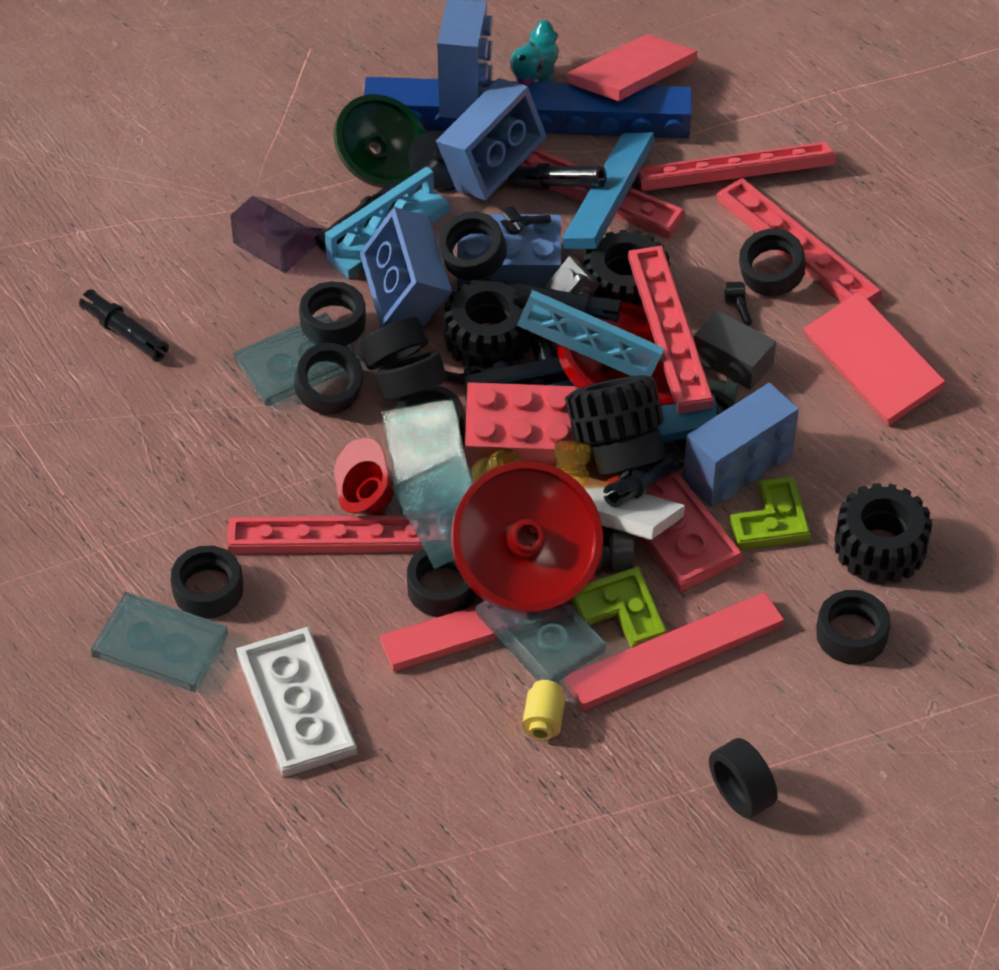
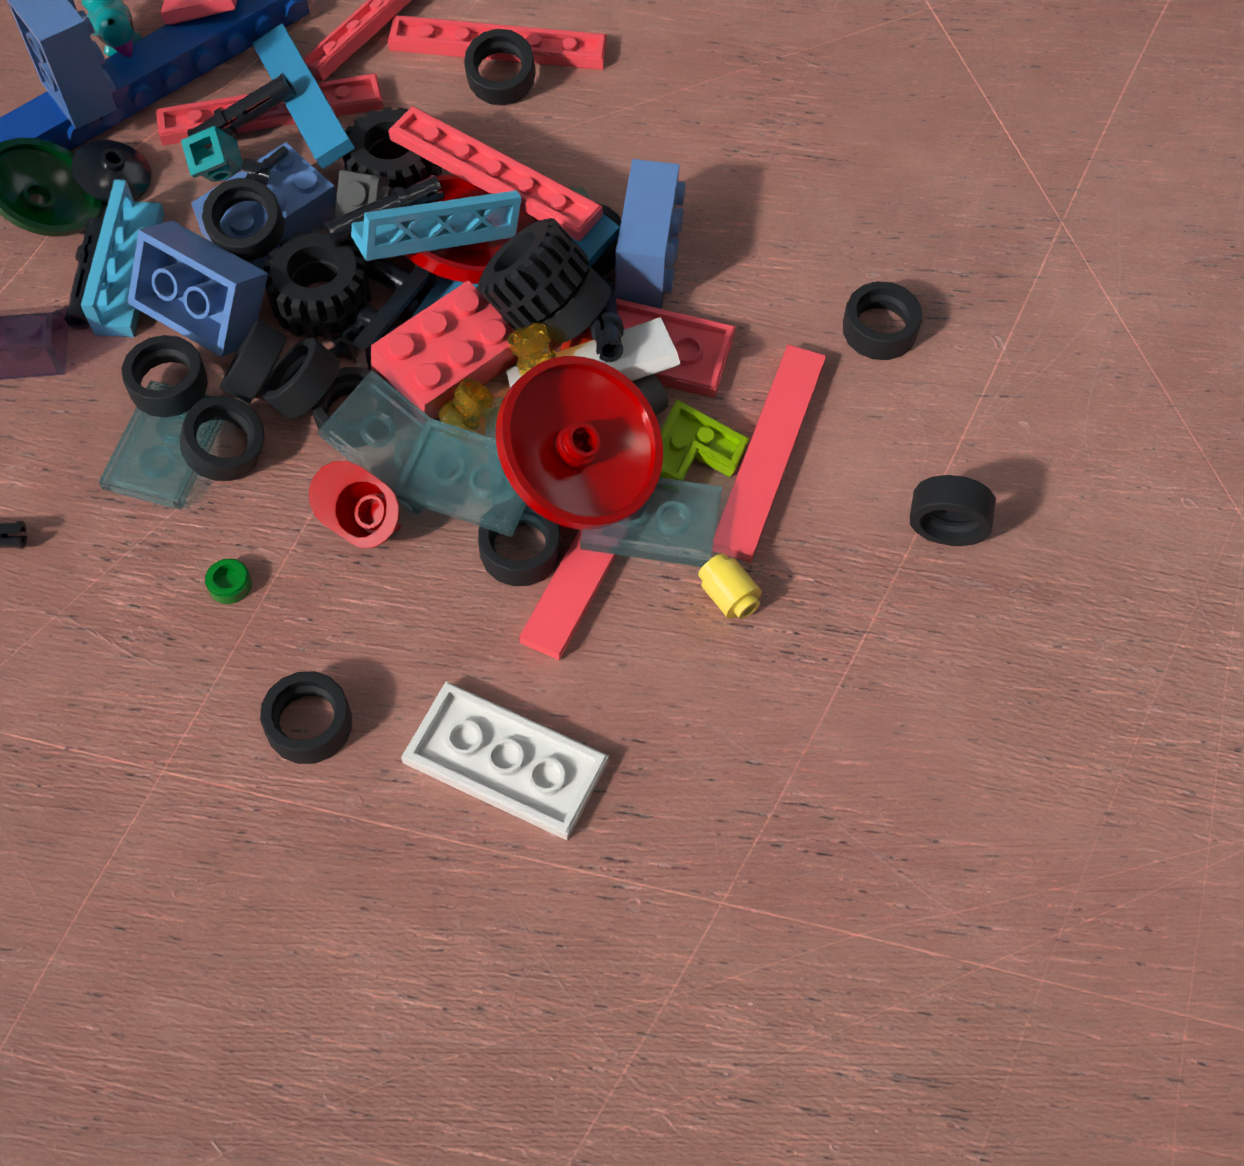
camera: 45 degrees left, 10 degrees up
(159, 641) = (318, 812): clear light blue tile -> none
(248, 469) = (228, 581): none -> green tile
(321, 535) = (363, 588): coral tile -> none
(491, 138) = (150, 113): medium blue brick -> none
(509, 189) = (215, 162): none -> teal brick
(734, 349) = (553, 153): dark grey brick -> none
(736, 293) = (494, 113): black hand -> none
(778, 523) = (728, 275): lime tile -> none
(874, 358) = (660, 91): coral tile -> none
(877, 555) = (829, 203): black tyre -> none

